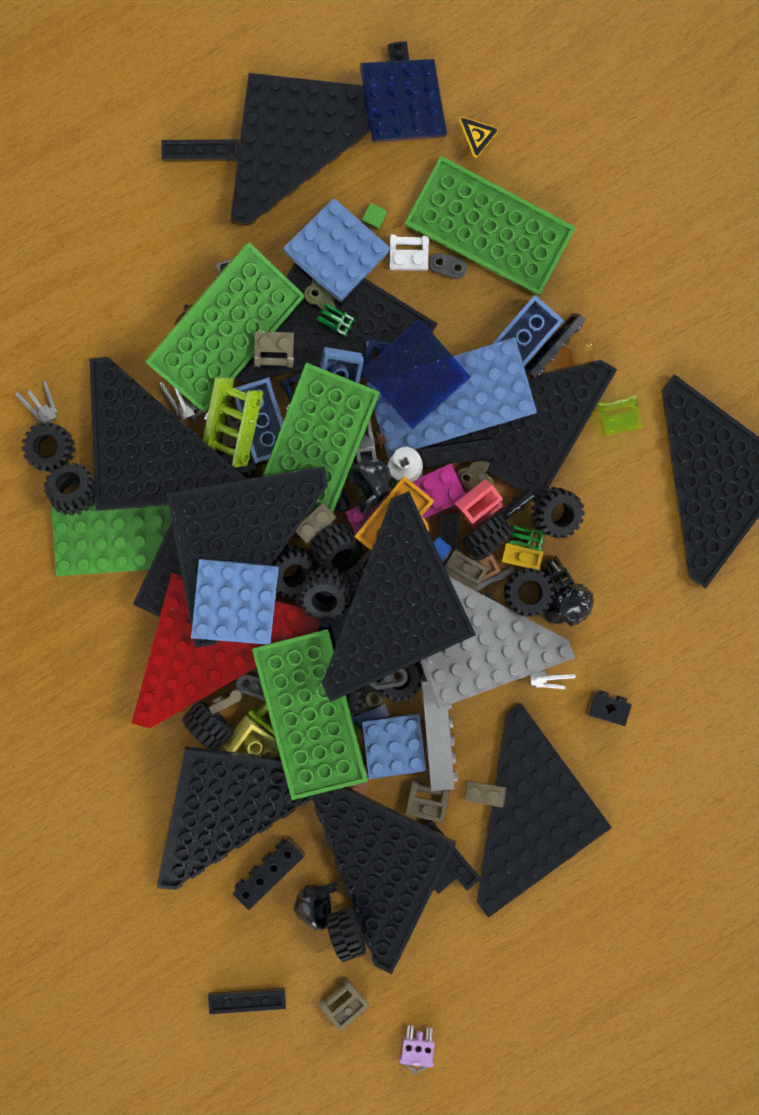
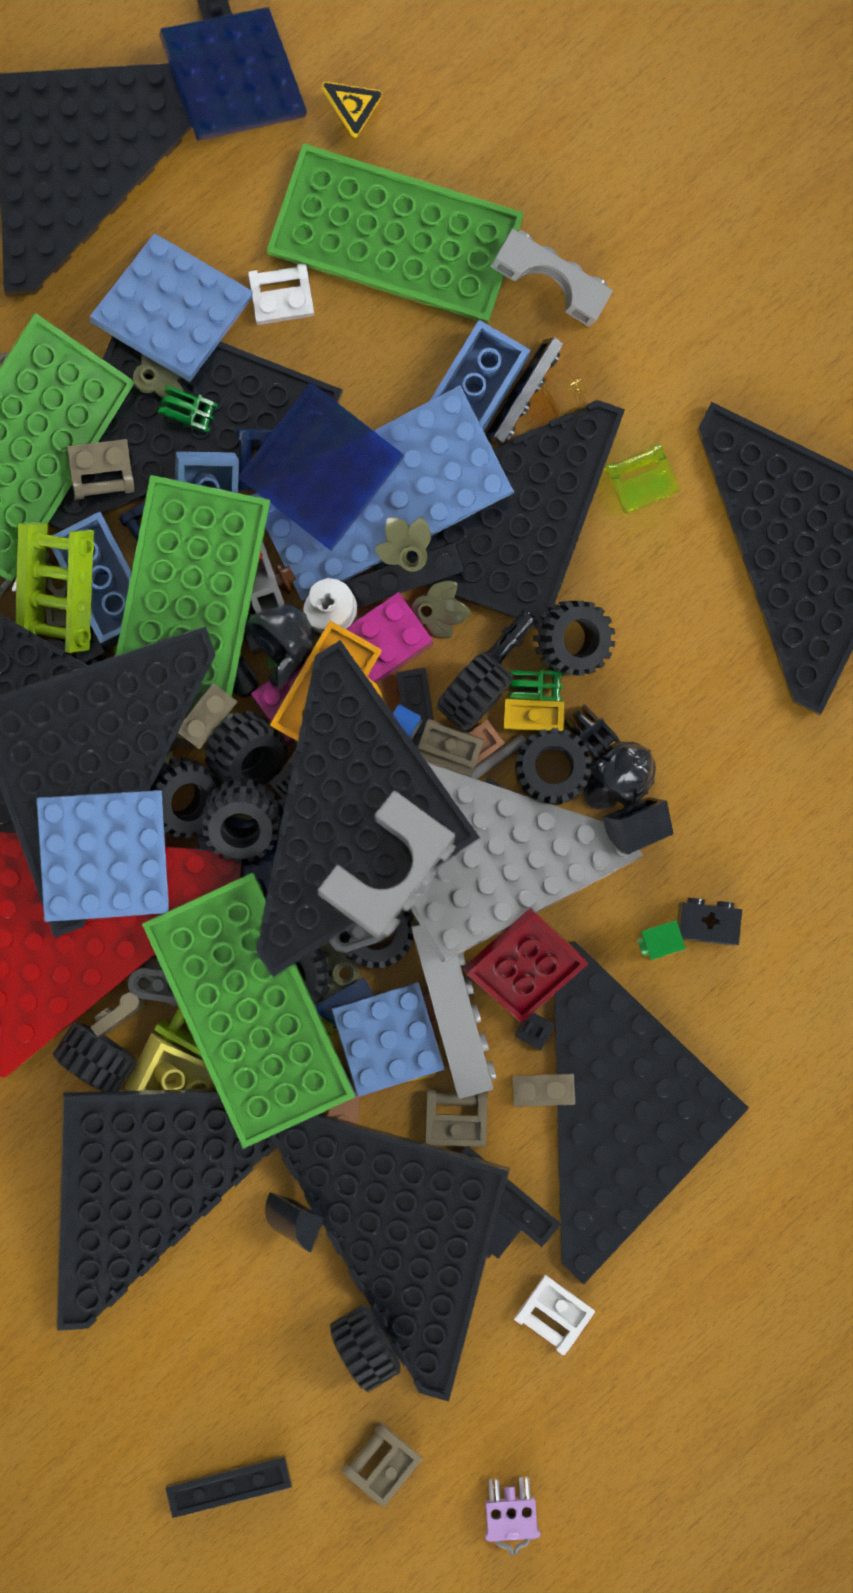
camera: 15 degrees left, 5 degrees down
(268, 873) = (228, 1276): black brick -> none
(314, 904) = (308, 1310): black head -> none
(315, 847) = (293, 1220): none -> black brick
(374, 216) = (220, 249): bright green tile -> none
(442, 635) = (376, 908): none -> light grey arch
(447, 268) = (342, 306): dark grey plate -> none
(460, 431) = (403, 539): none -> olive plate
(471, 928) = (561, 1307): none -> white plate
(479, 504) = (453, 643): coral piece -> none
(486, 754) = (535, 1031): none -> black tile
(489, 716) = (525, 965): none -> dark red plate
(540, 679) = (595, 894): white plant -> none
(576, 639) = (639, 825): none -> black brick
(577, 715) = (661, 940): none -> green slope
(604, 288) = (583, 294): none -> light grey arch

